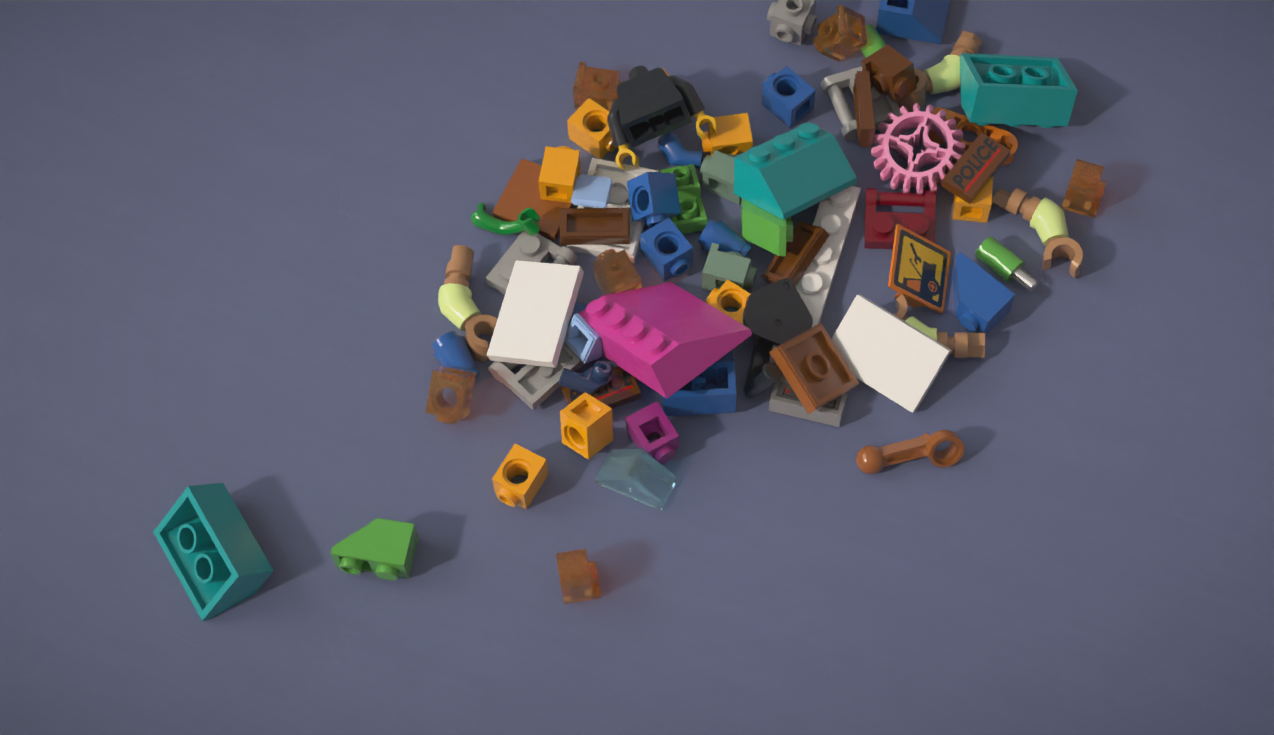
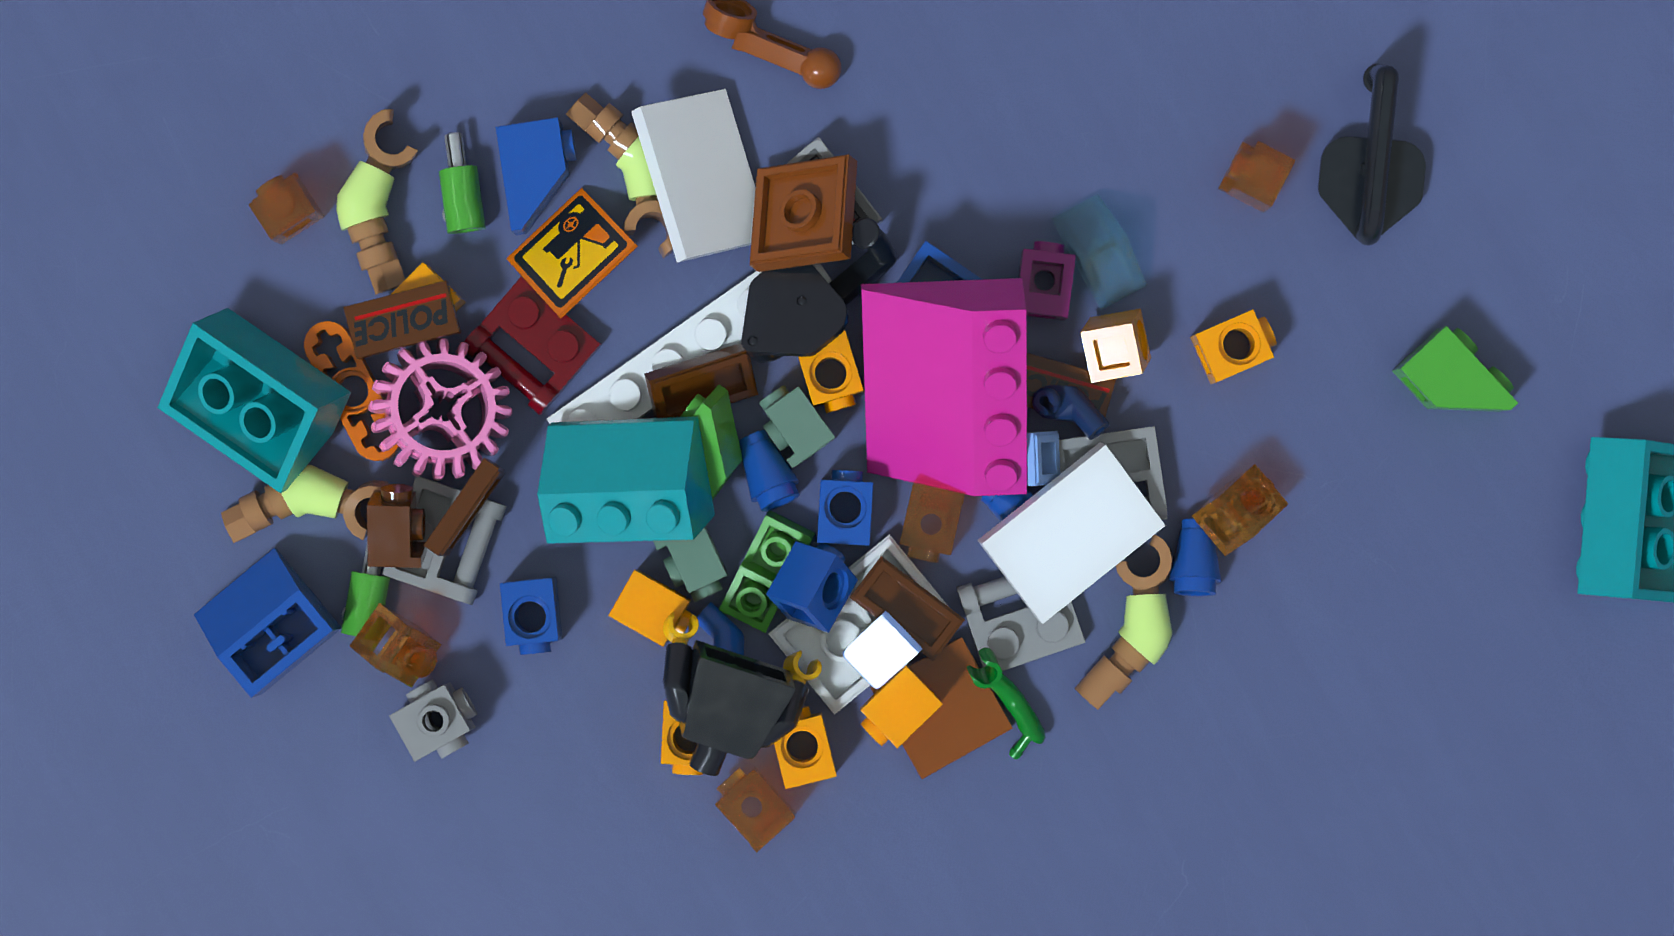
camera: 145 degrees left, 25 degrees up
(513, 626) = (1373, 178): none -> black piece

